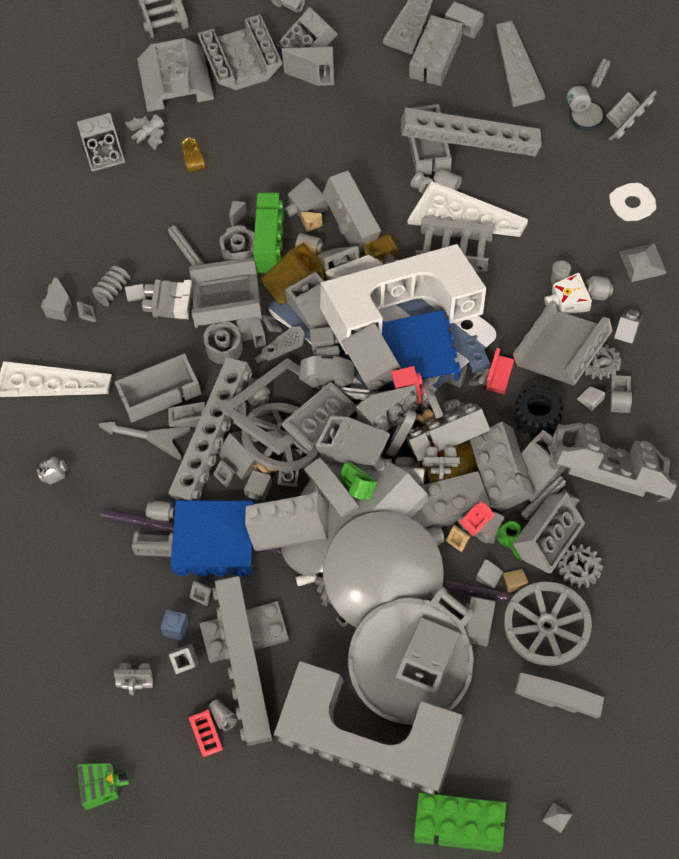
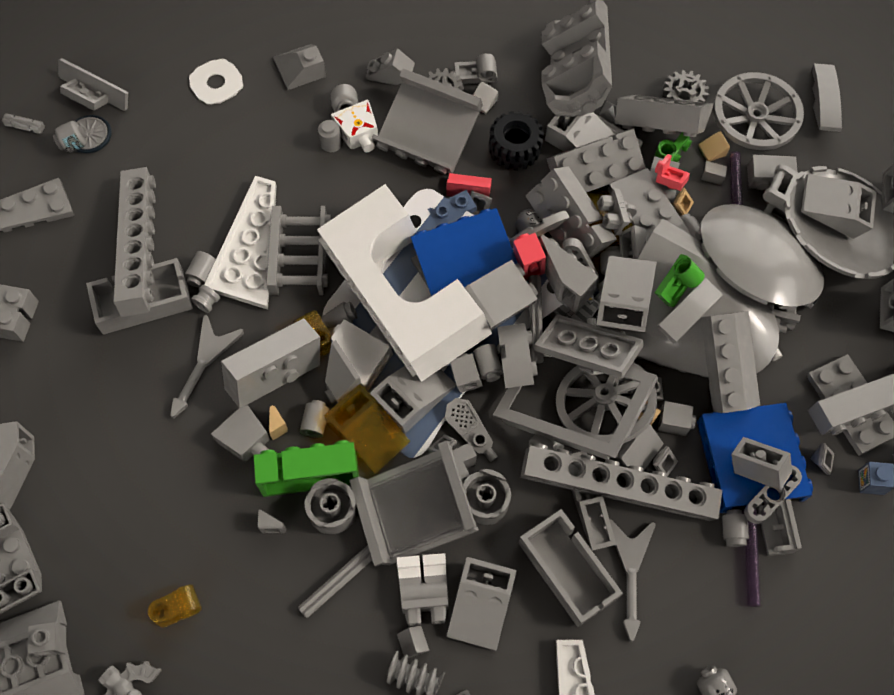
camera: 105 degrees left, 5 degrees up
(150, 332) = (481, 603): none -> light grey slope
(176, 542) = (767, 511): none -> light grey beam
(197, 519) = (762, 463): none -> light grey brick
(380, 186) = (209, 350): none -> light grey piece

